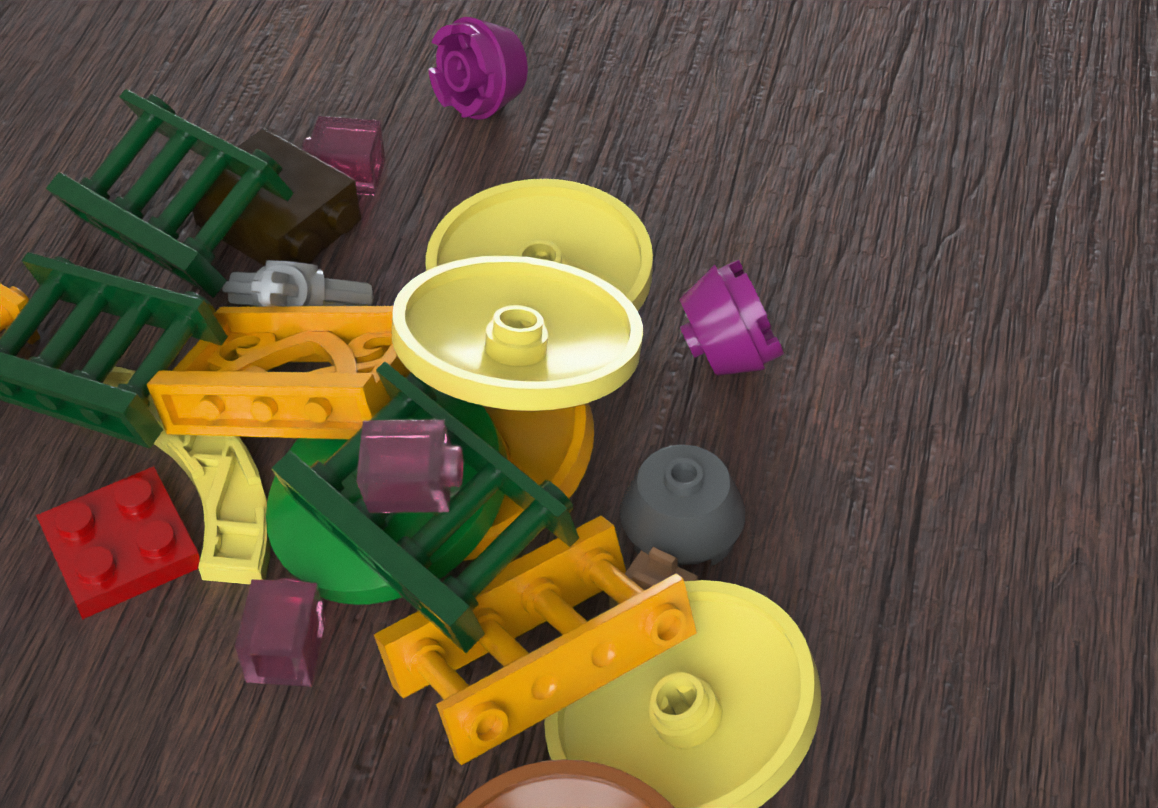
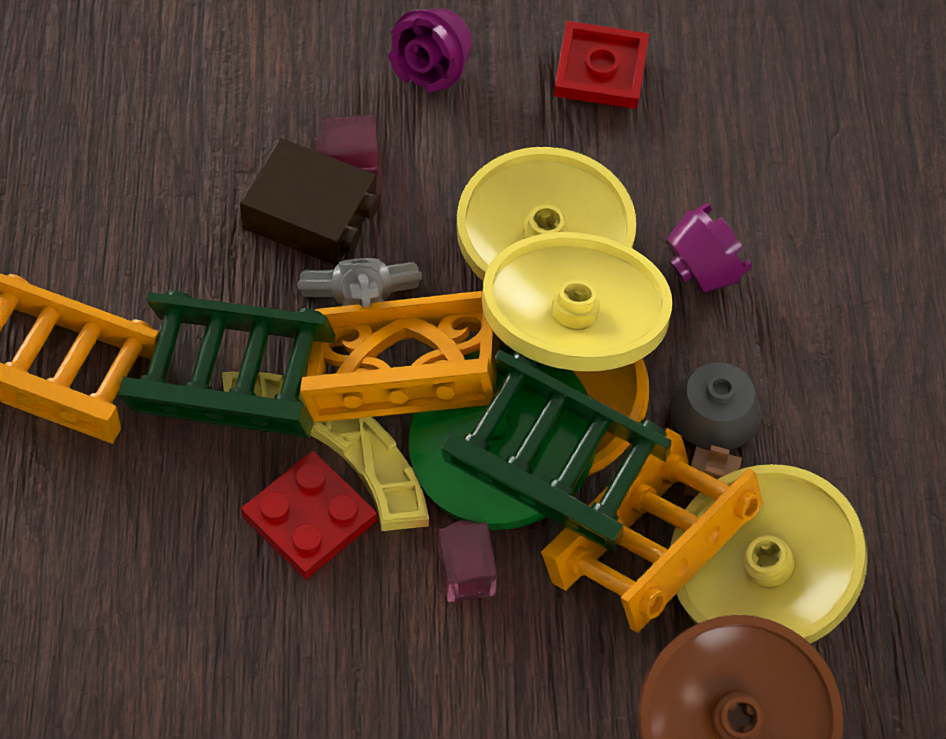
camera: 20 degrees left, 10 degrees up
(158, 236) = (234, 254): dark green fence -> none
(407, 466) = (550, 430): clear pink brick -> none
(678, 118) = (601, 64): none -> red plate

